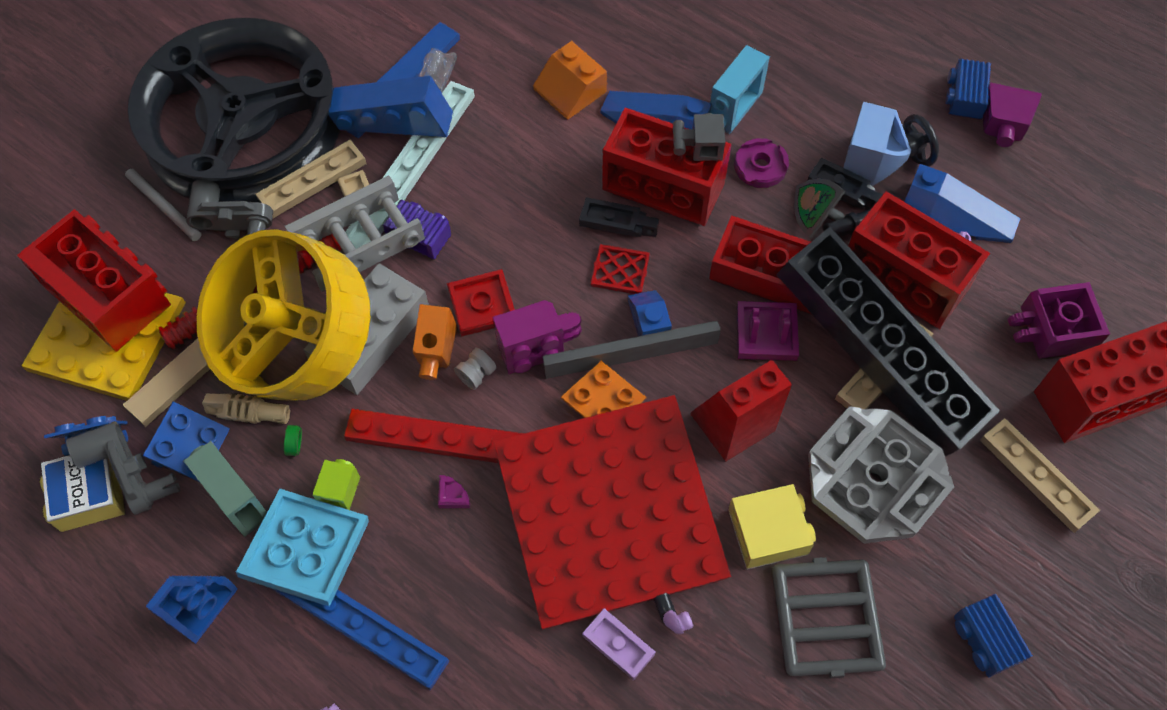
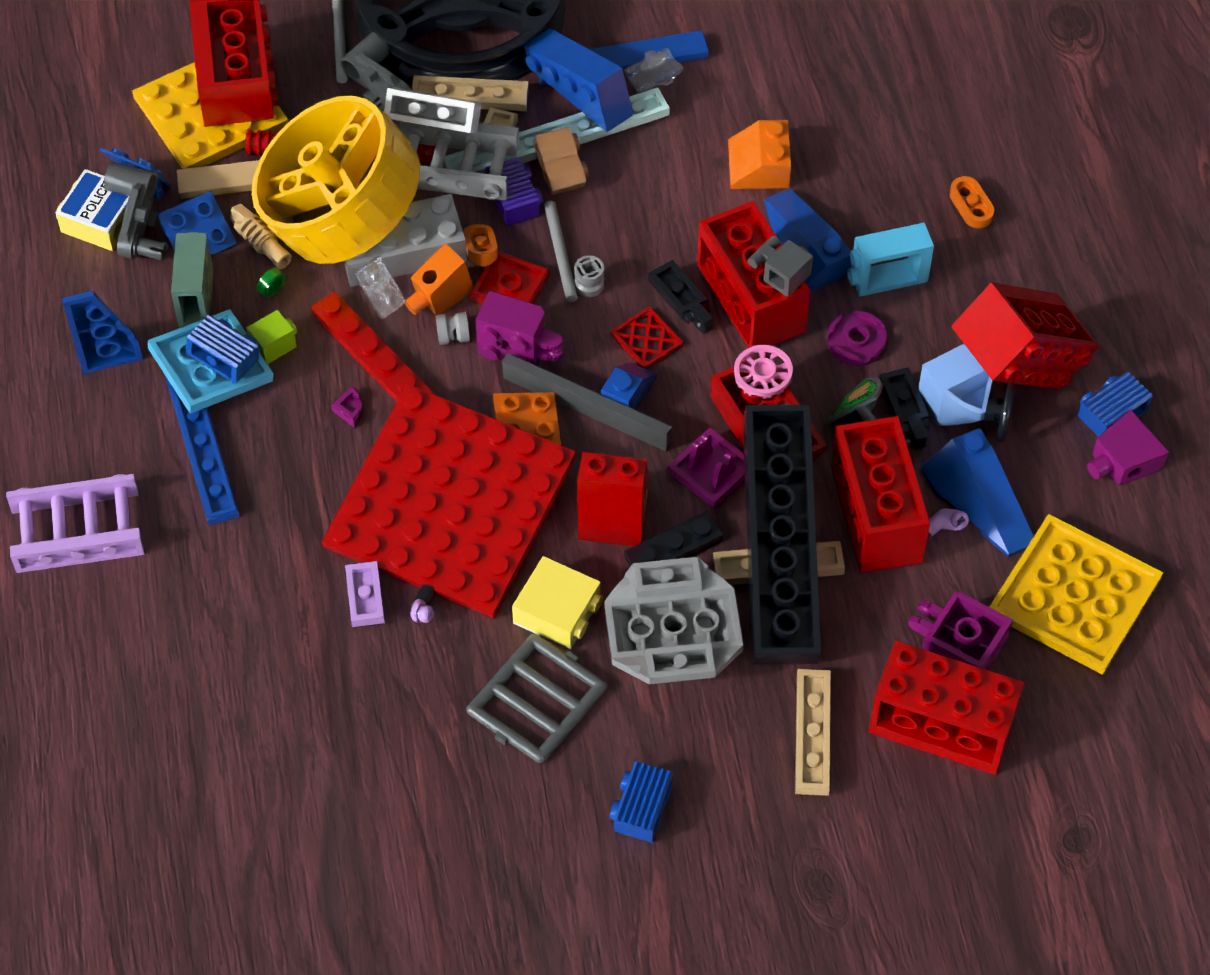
camera: 40 degrees right, 5 degrees down
(311, 529) = (222, 348): none -> blue brick
(315, 204) = (432, 110): none -> white brick
(390, 378) = (380, 287): none -> clear hips
(433, 181) = (560, 160): none -> medium nougat brick
(438, 287) = (481, 244): none -> orange plate
(495, 250) = (560, 251): none -> light grey bar
(538, 252) = (589, 276): none -> light grey wheel
(739, 18) = (974, 204): none -> orange plate
(747, 229) = (763, 371): none -> bright pink wheel
(799, 412) = (678, 542): none -> black plate
(897, 78) = (1025, 336): none -> red brick
(1084, 234) = (1076, 593): none -> yellow plate

